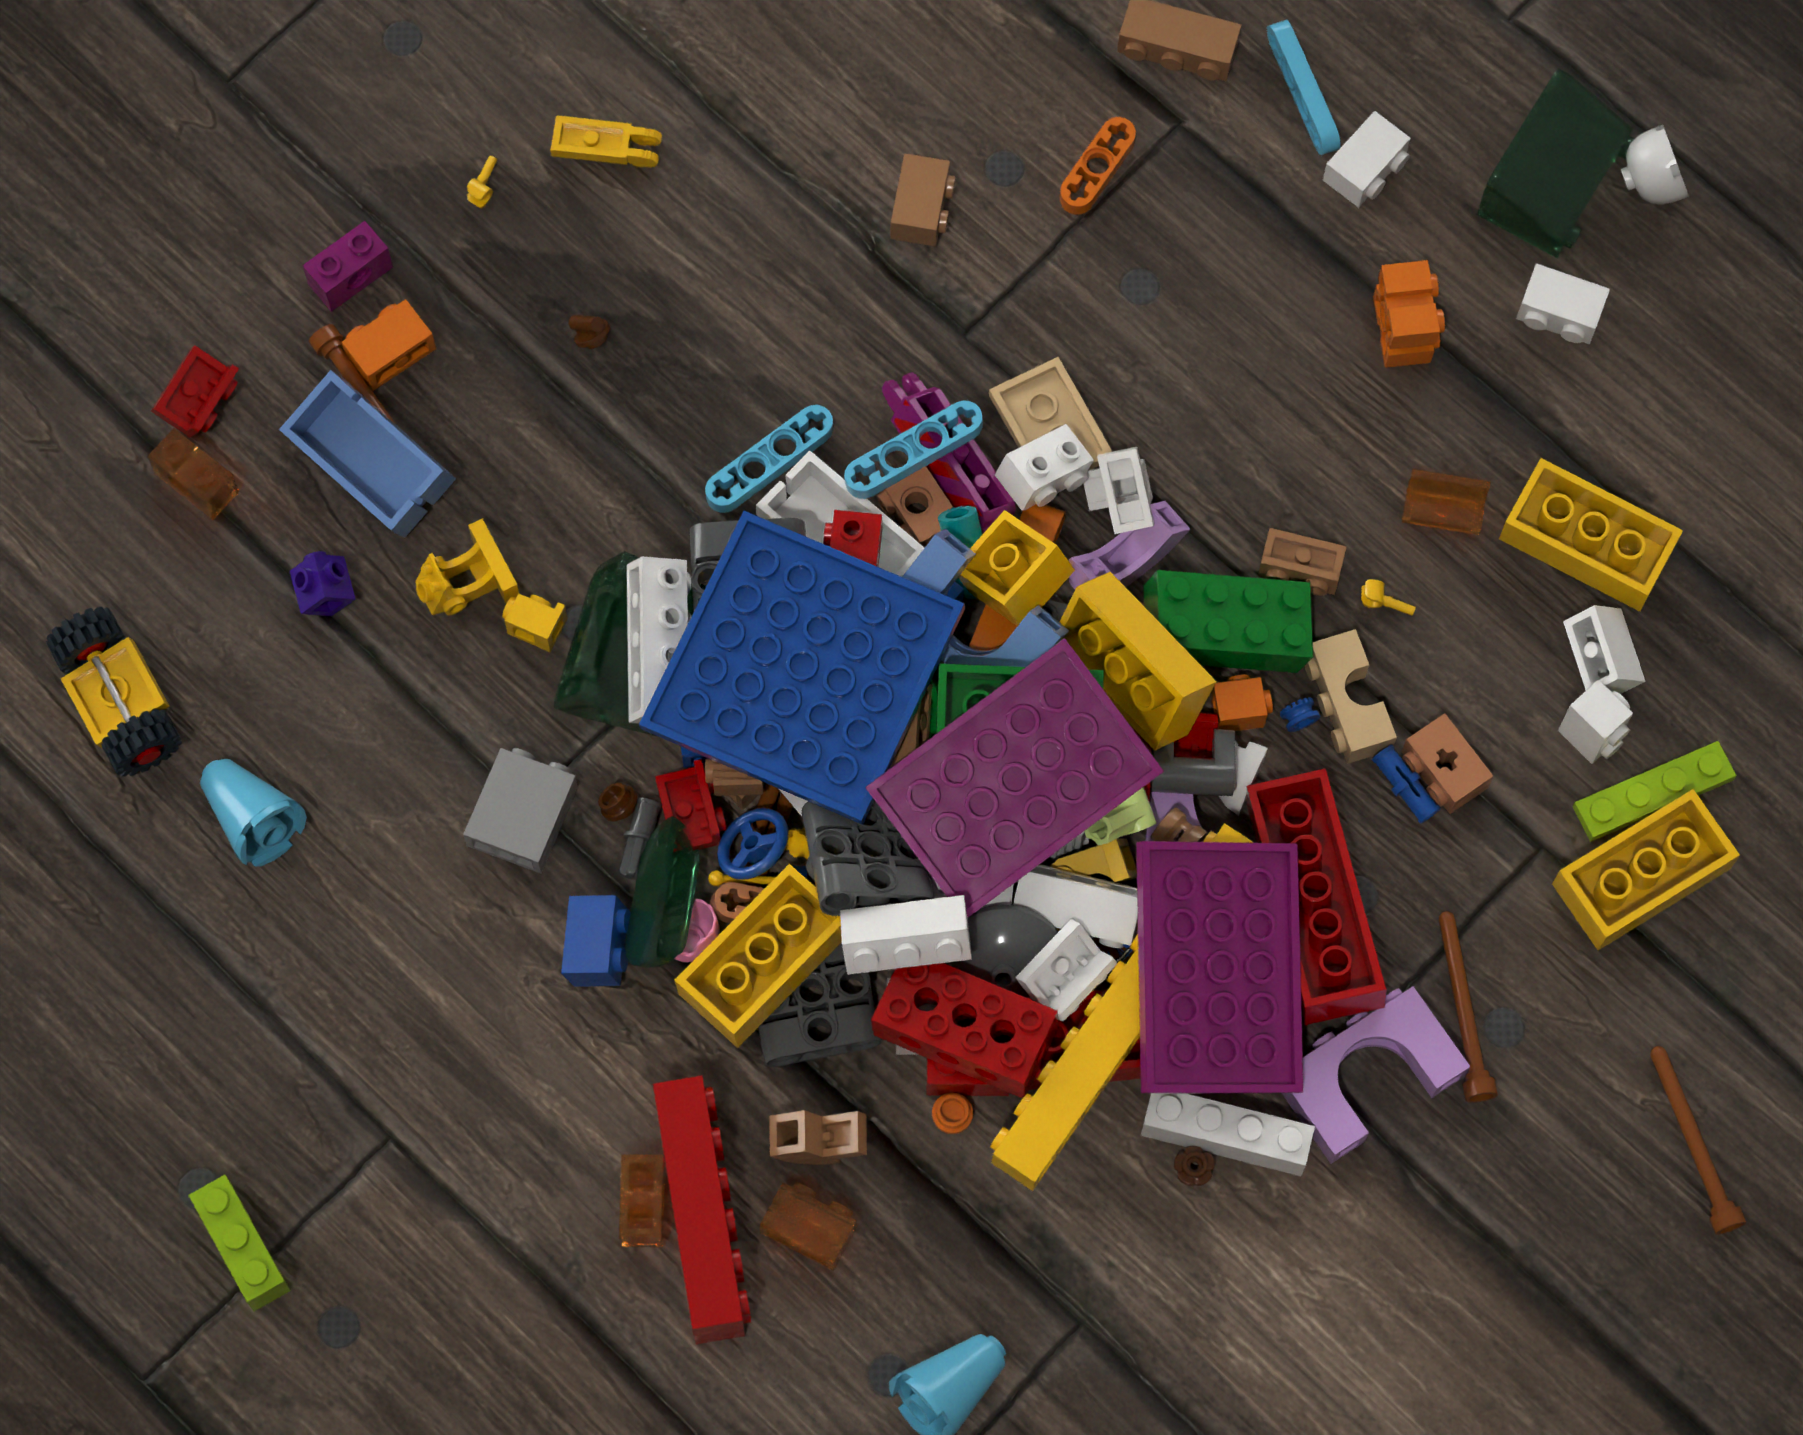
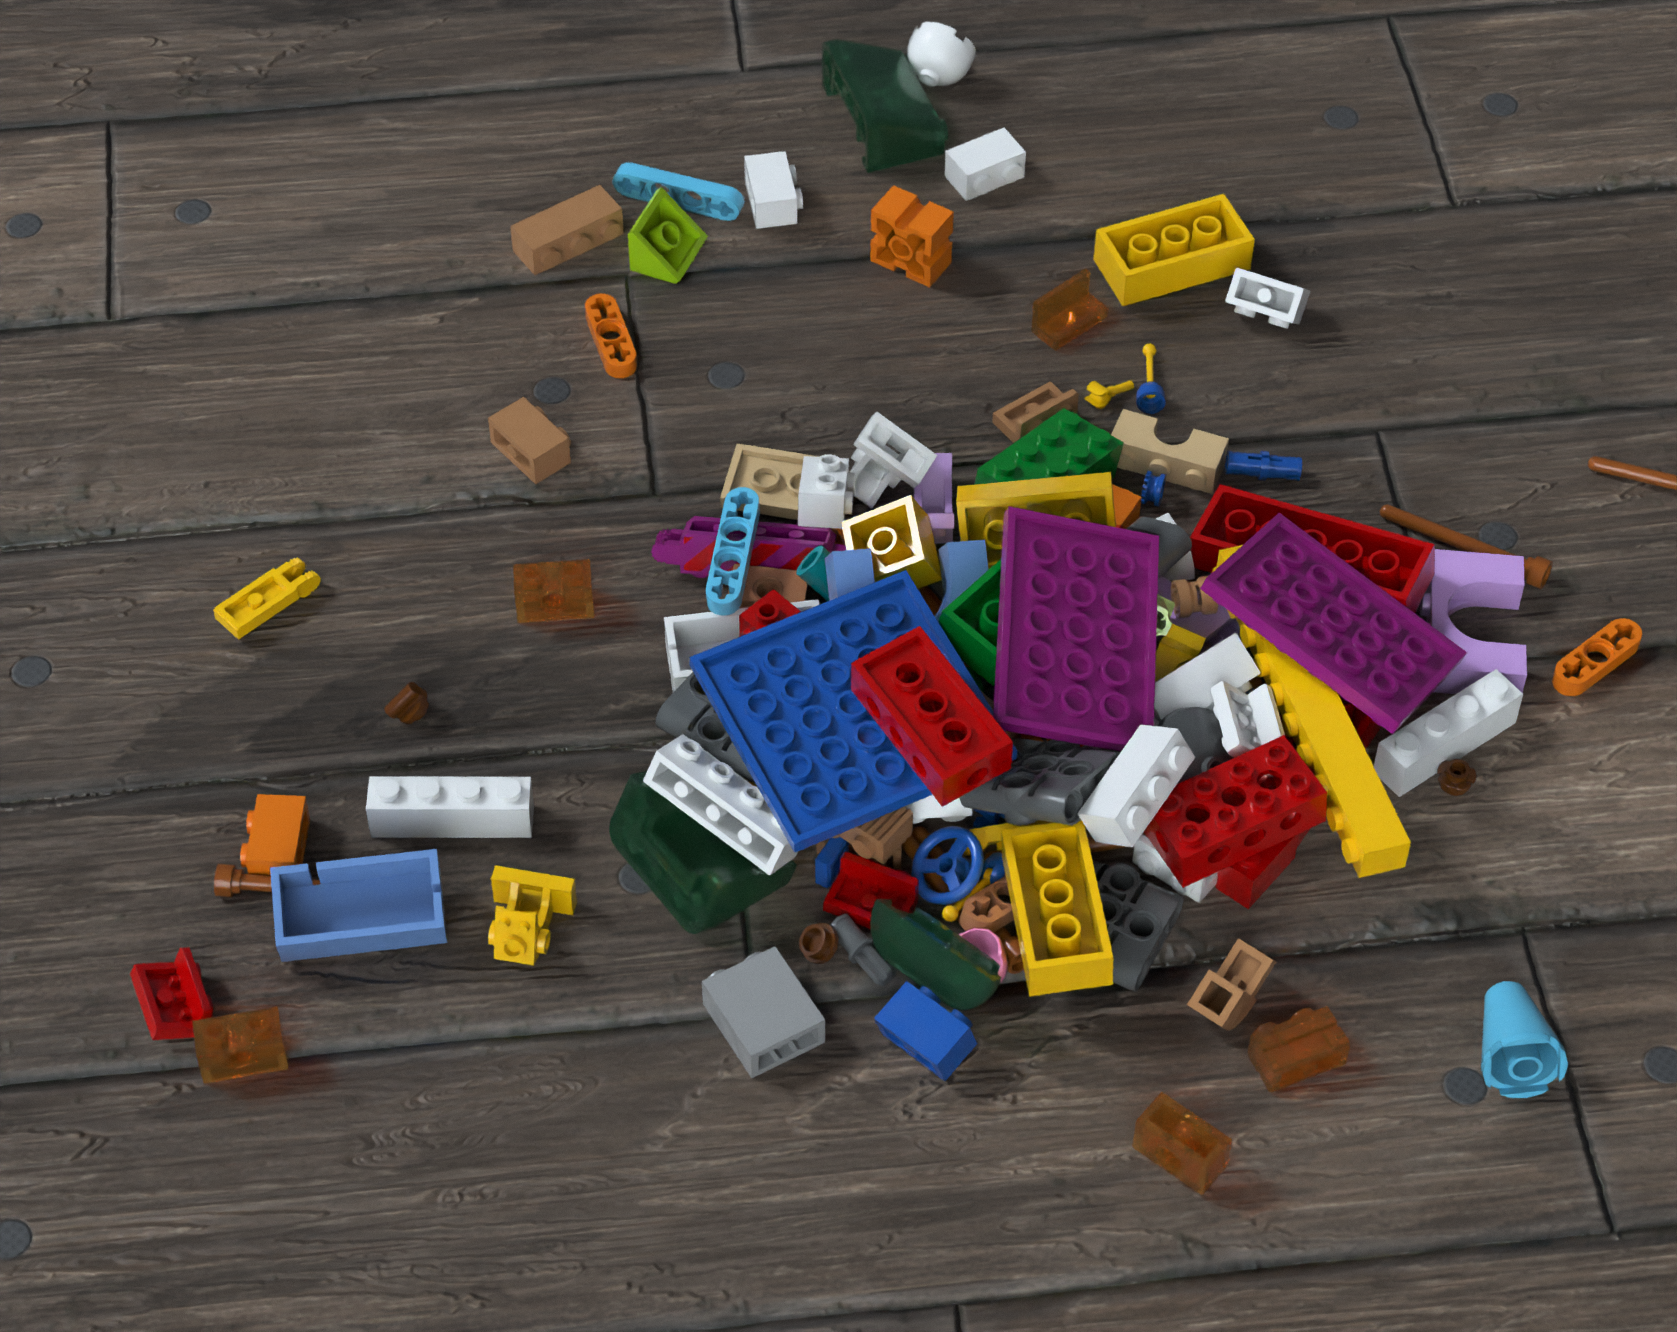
camera: 50 degrees left, 20 degrees down
(114, 691) = (372, 1228): plate -> none
(251, 812) = (576, 1199): medium azure cone -> none
(322, 584) = (432, 1016): dark purple brick -> none
(348, 266) = (182, 821): magenta brick -> none
(478, 191) = (214, 701): yellow hand -> none
(517, 441) = (450, 807): none -> white brick
(534, 620) = (611, 897): yellow brick -> none
(698, 1209) = (1269, 1121): red brick -> none
(765, 454) = (631, 666): medium azure beam -> none
(785, 343) = (553, 591): none -> clear orange brick
(804, 712) = (931, 716): none -> red brick
(952, 1113) = (1281, 896): orange plate -> none
(1235, 122) = (664, 239): none -> lime slope
(1408, 636) = (1154, 393): none -> blue hinge
(1445, 744) = (1271, 428): nougat brick -> none
(1455, 1212) = (1593, 671): none -> orange beam
(1597, 722) = (1320, 328): white brick -> none
(1645, 869) = (1454, 375): yellow brick -> none
(1652, 790) = (1392, 345): lime plate -> none

